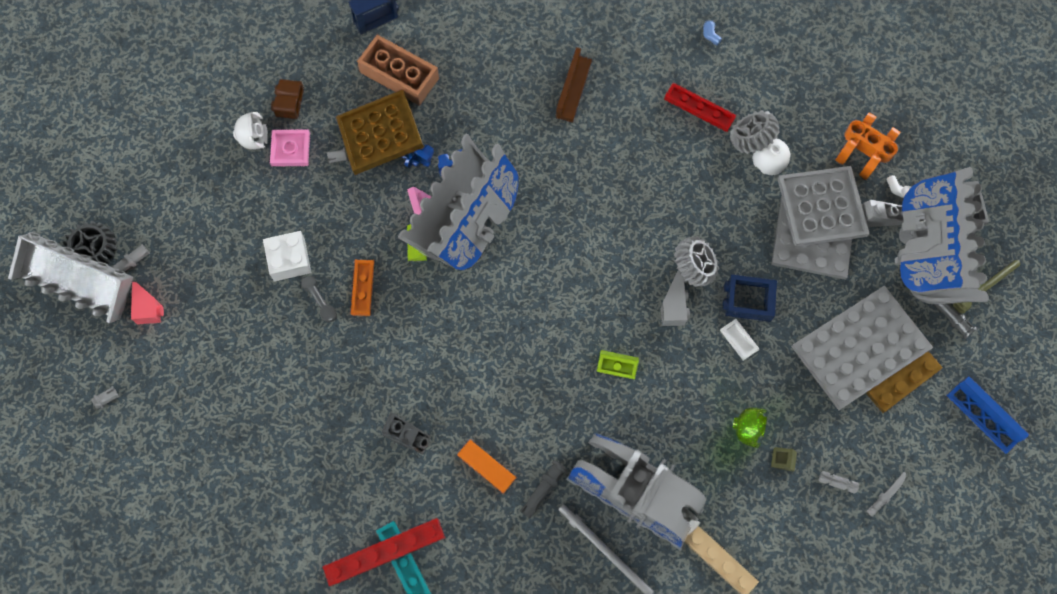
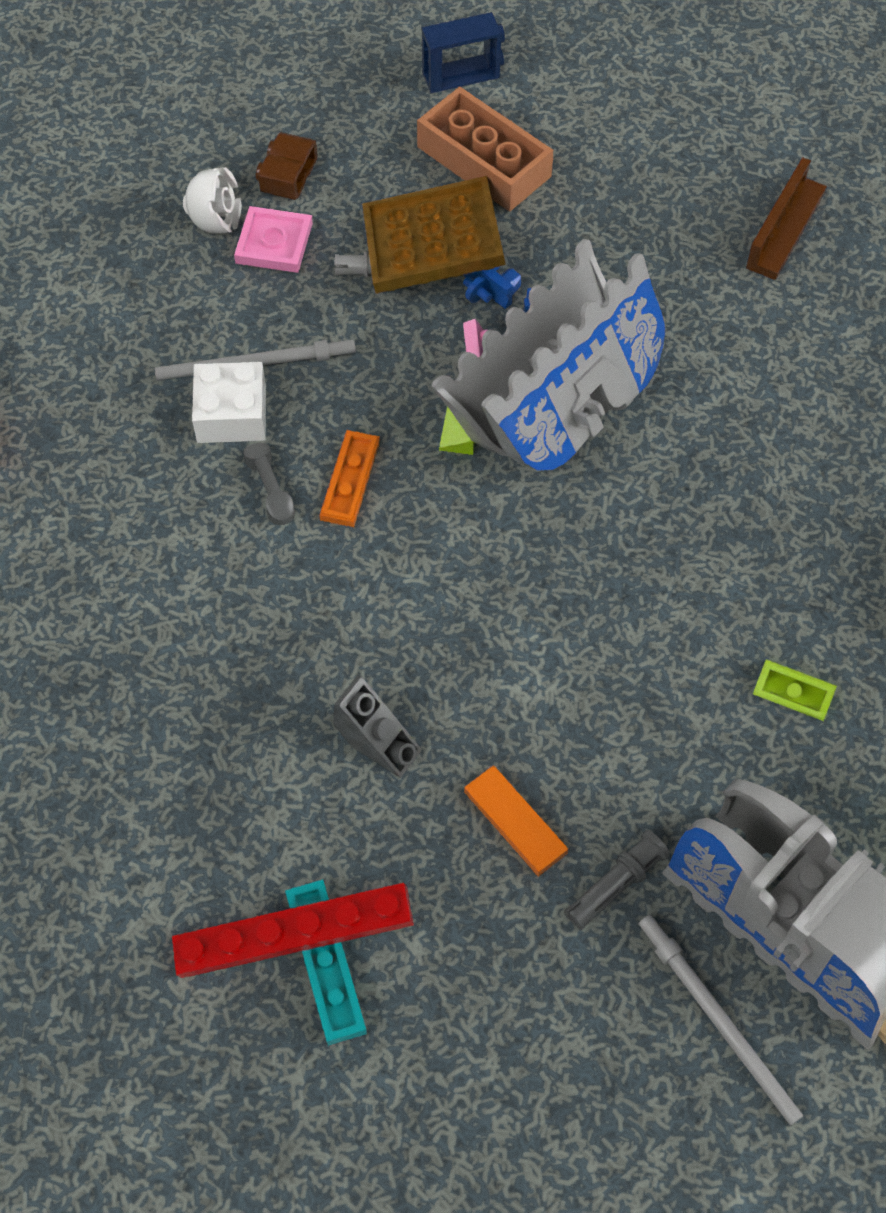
camera: 15 degrees right, 10 degrees down
(330, 213) = (320, 350): none -> light grey bar

